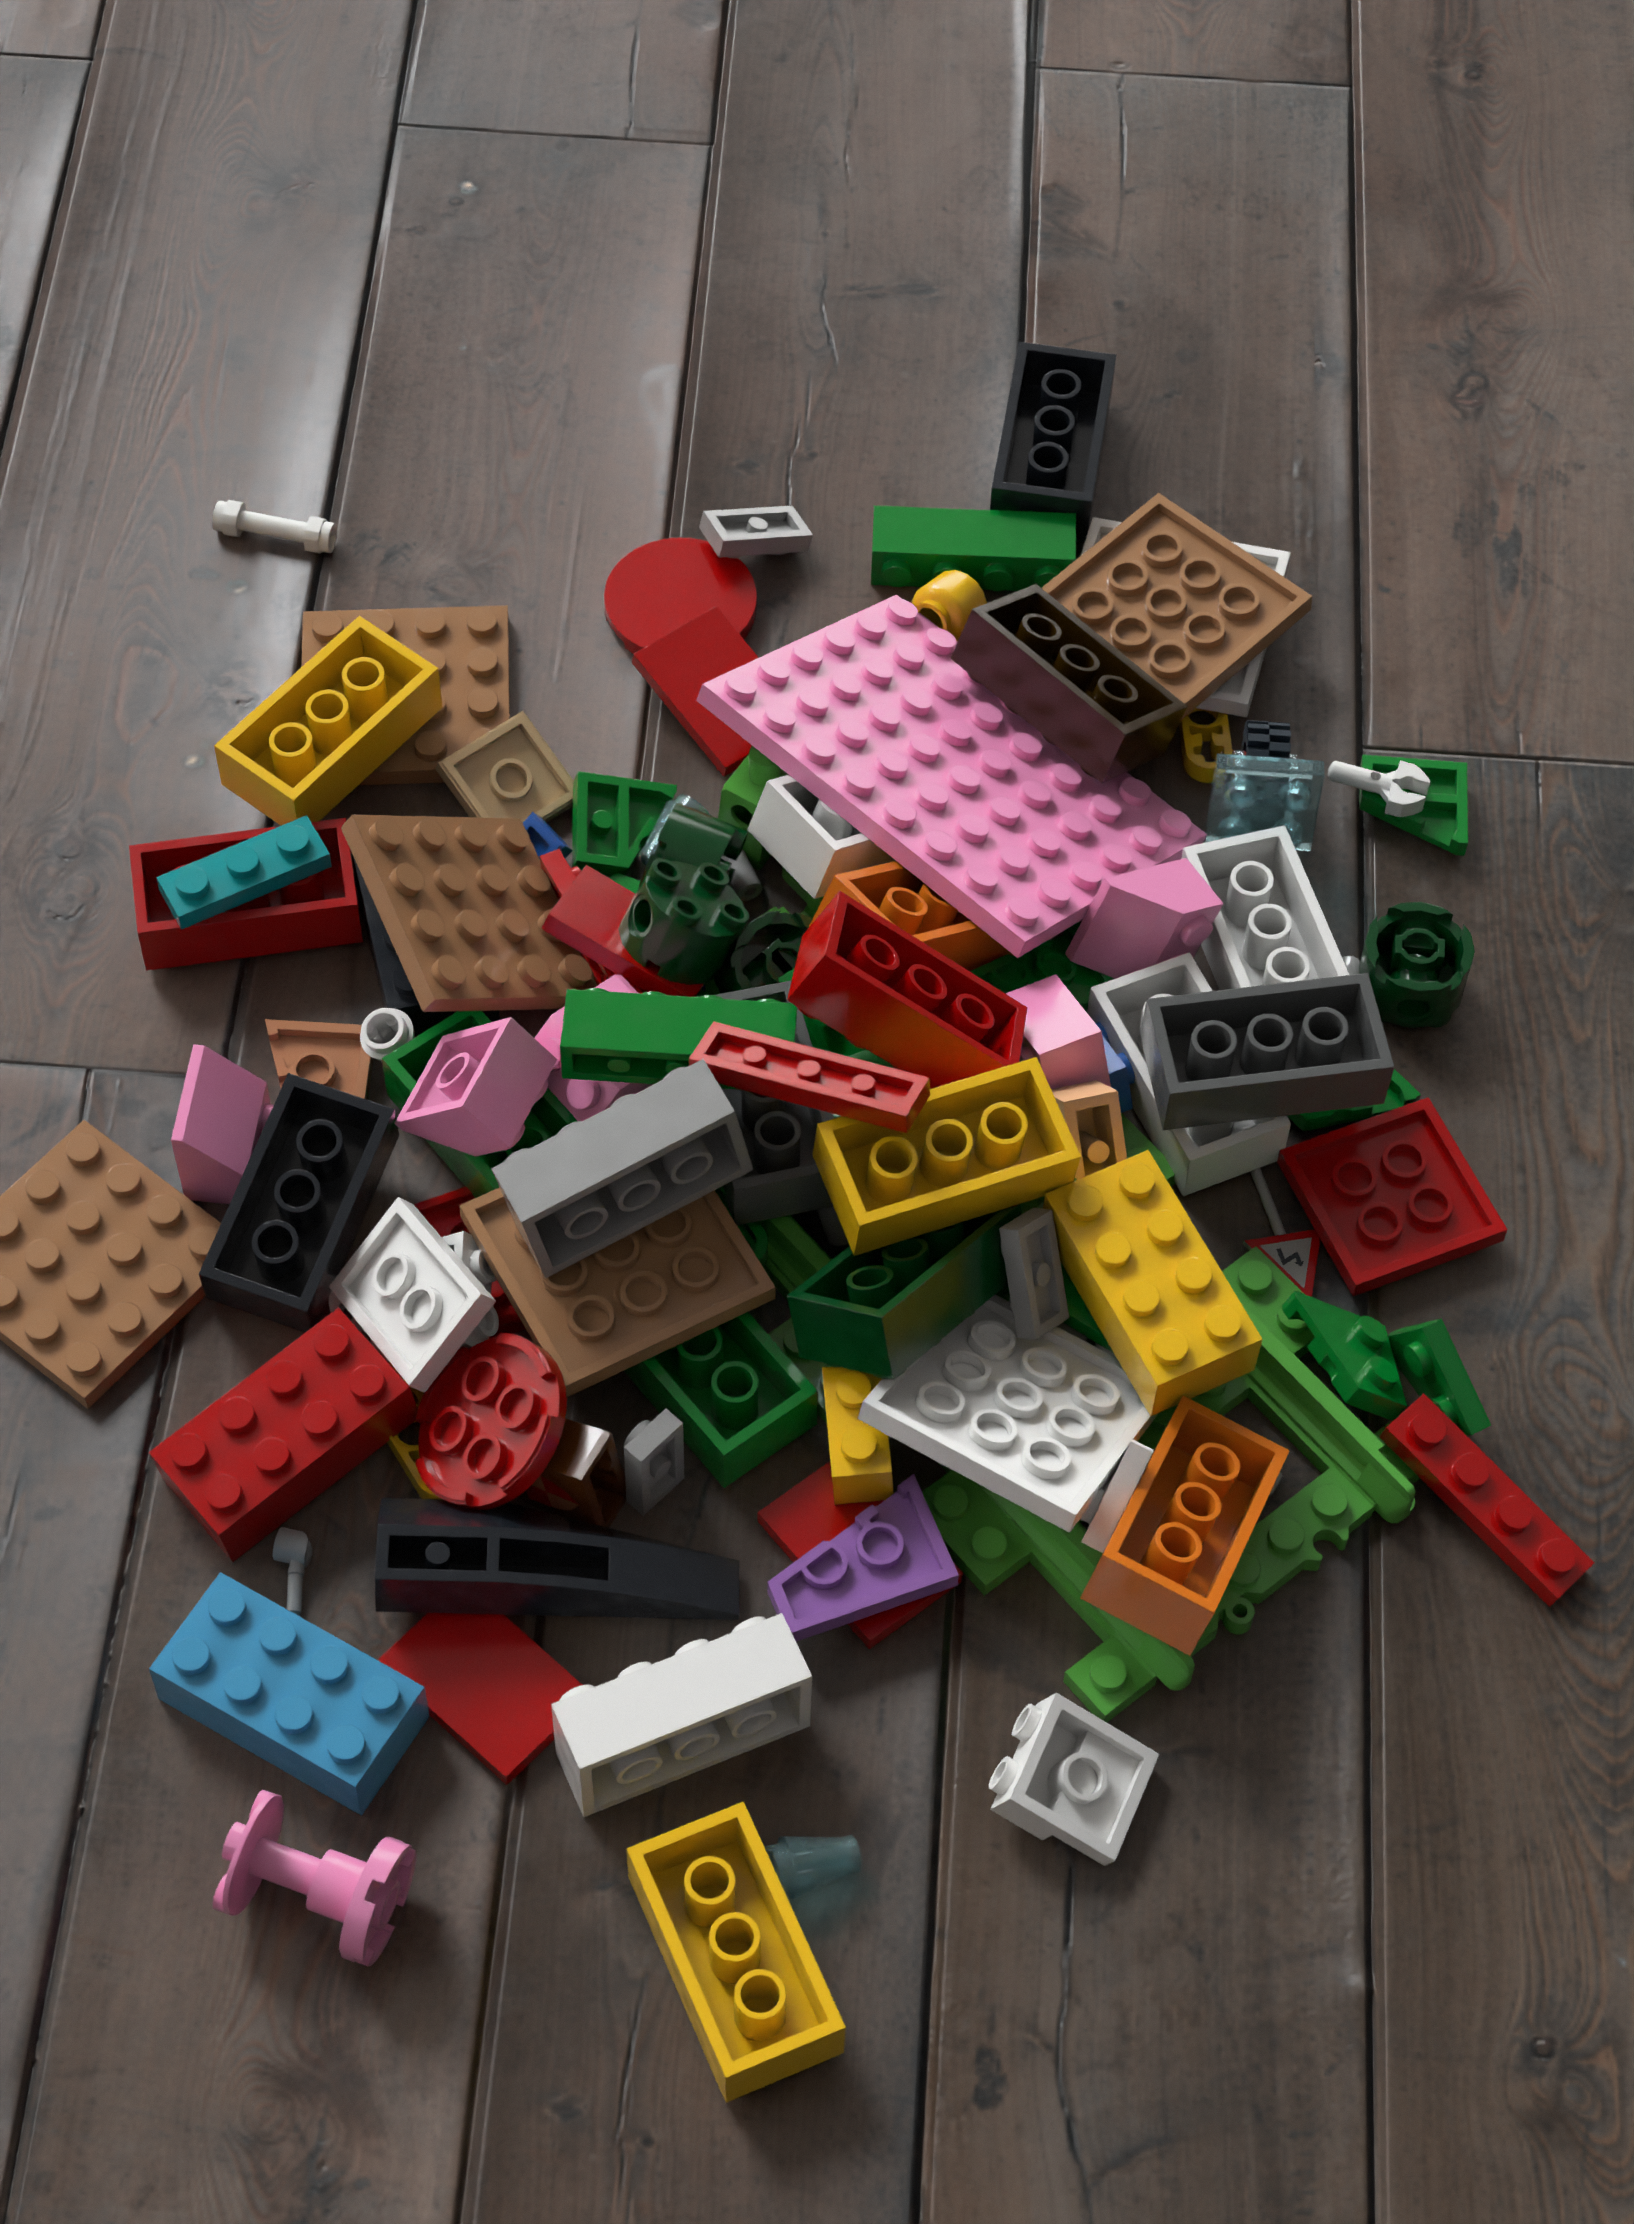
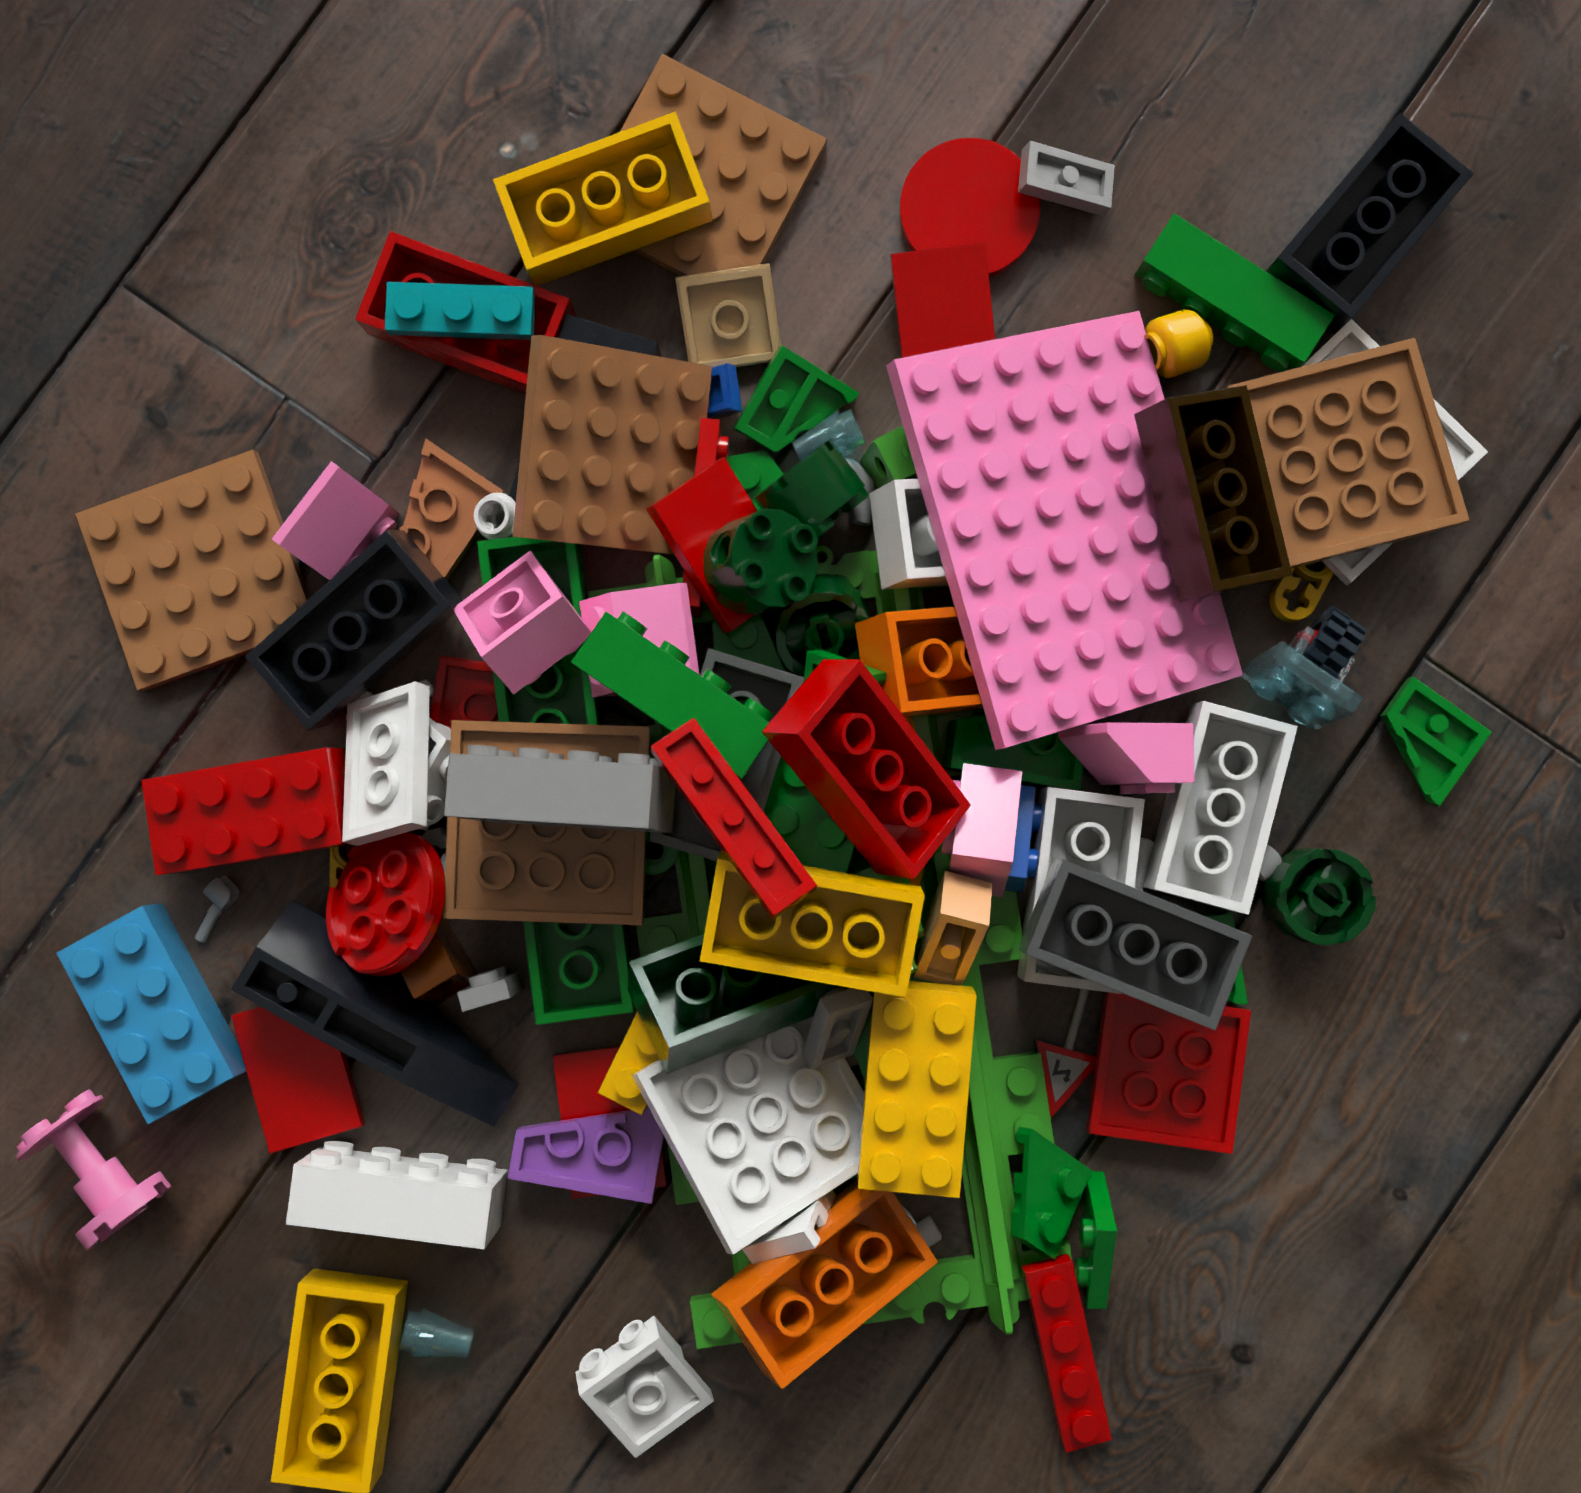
camera: 35 degrees right, 30 degrees up
(1387, 785) = (1409, 719): white bar -> none

